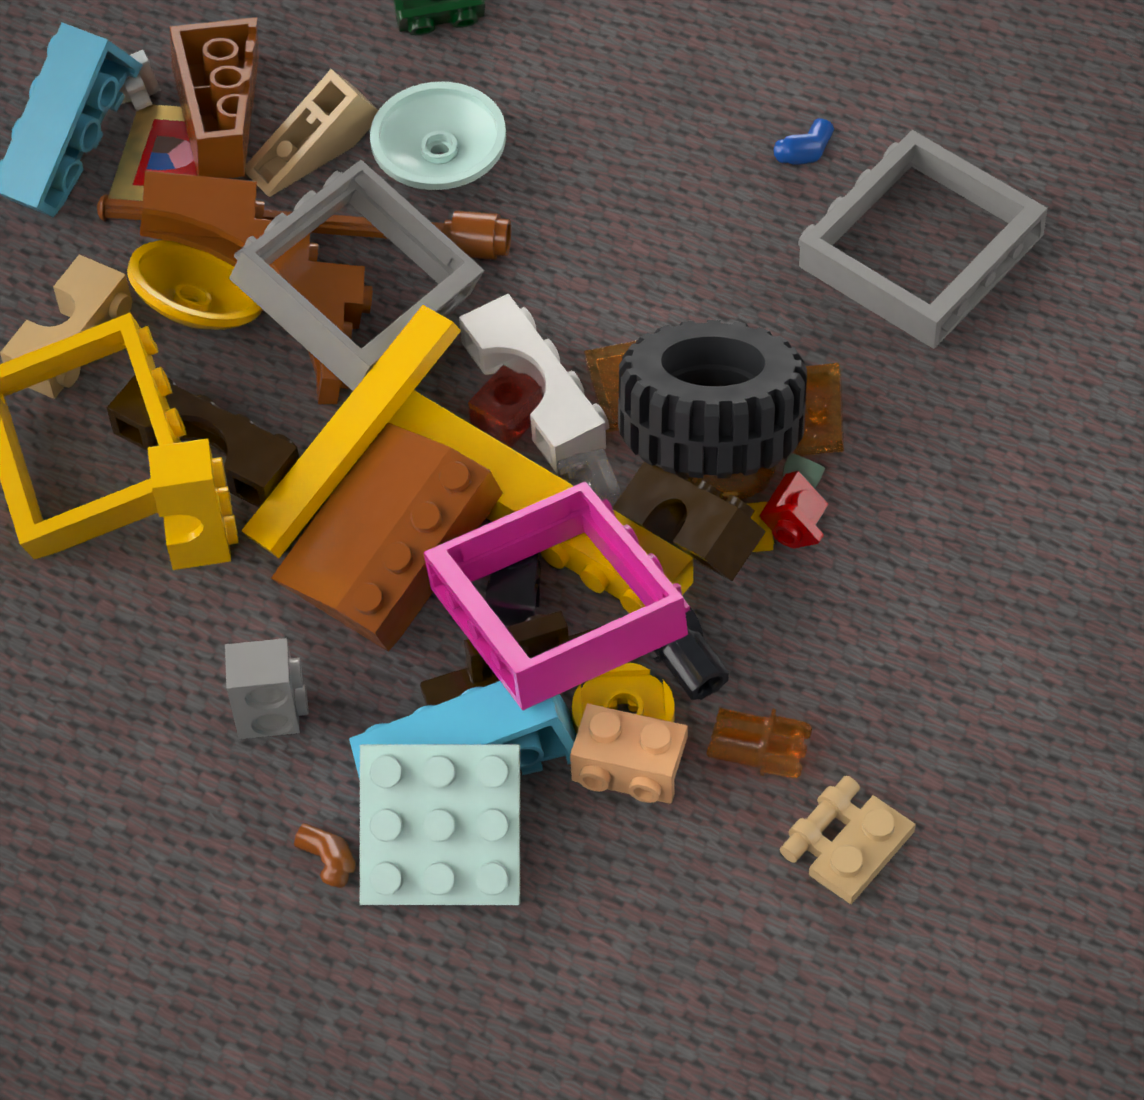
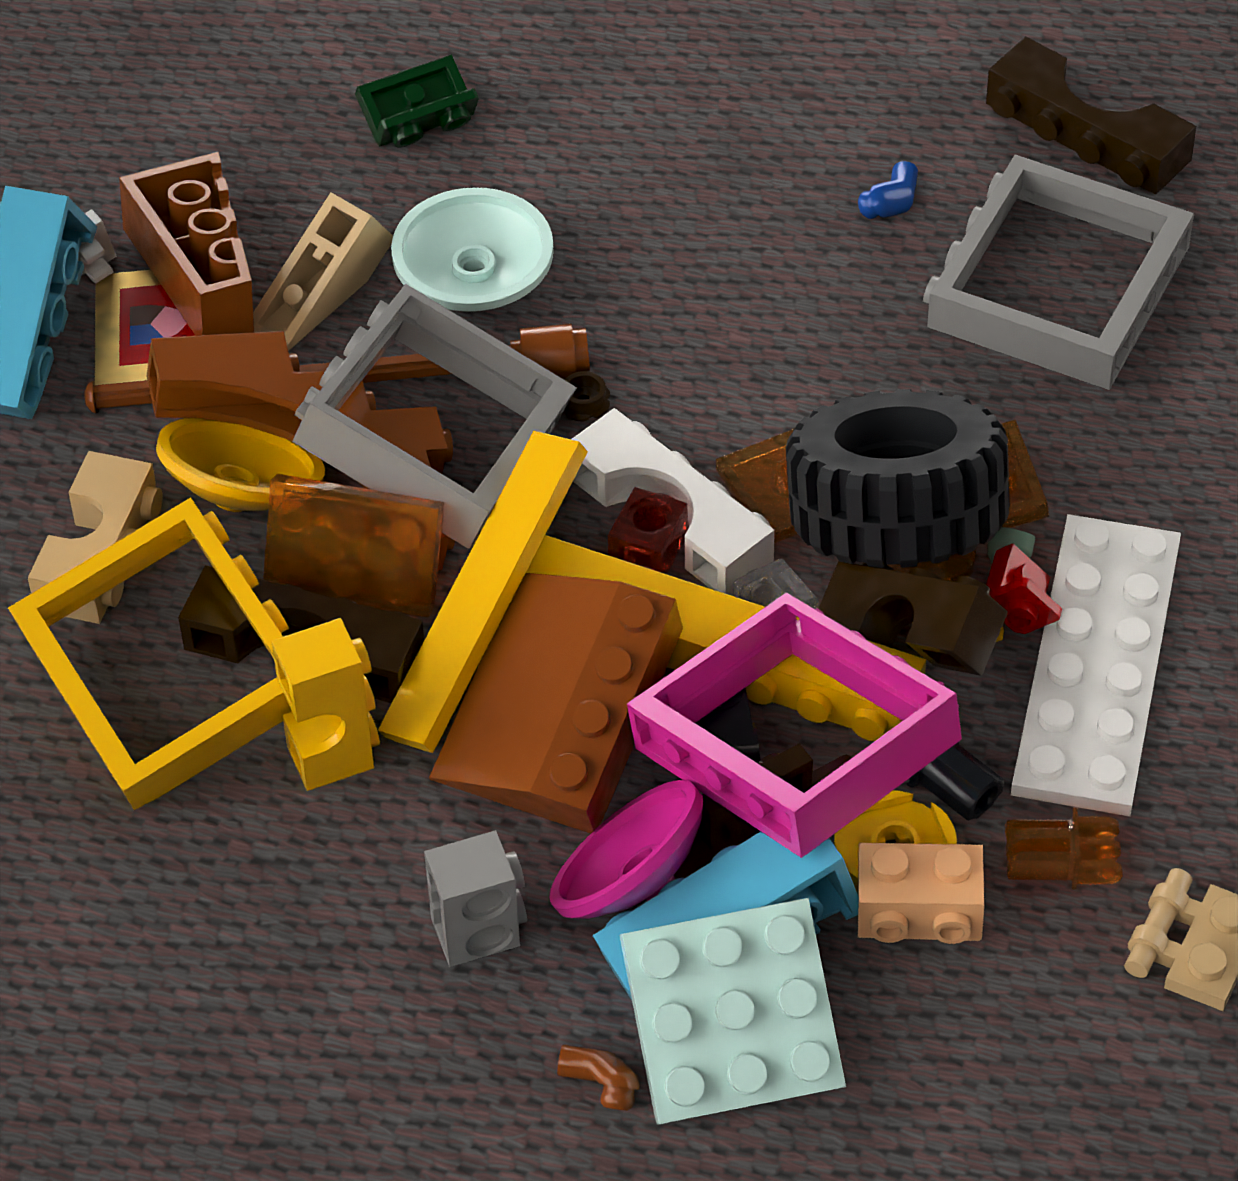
camera: 15 degrees left, 5 degrees down
(262, 372) = (354, 543): none -> clear orange plate
(400, 677) = (630, 853): none -> dark pink dish
(496, 268) = (594, 390): none -> dark brown plate
(843, 587) = (1097, 666): none -> white plate
(1025, 138) = (1139, 144): none -> dark brown arch

